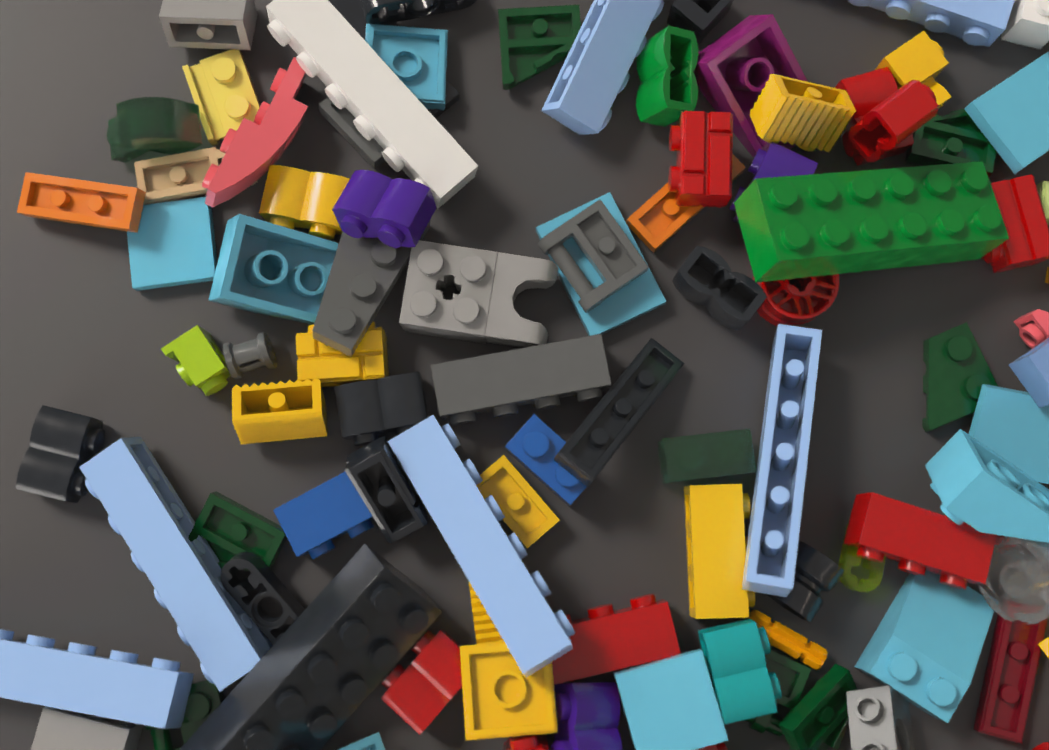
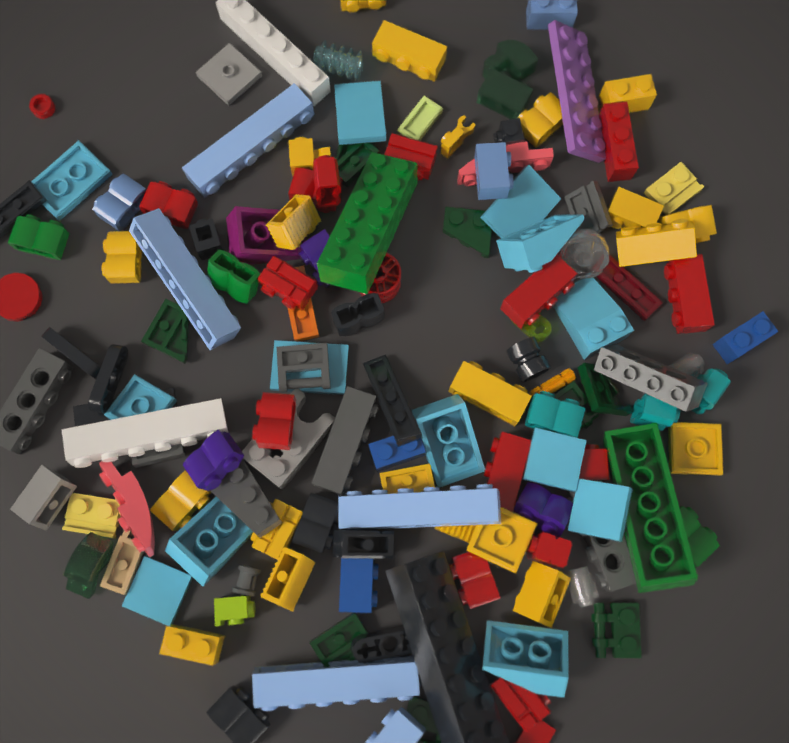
camera: 60 degrees left, 5 degrees down
(81, 202) = (103, 628): orange plate -> none
(123, 332) = (192, 644): none -> yellow brick
(488, 260) = (275, 421): none -> red brick
(610, 528) = (449, 440): none -> medium azure slope
(706, 456) = (439, 370): clear green brick -> none
(782, 462) = (463, 334): light blue brick -> none

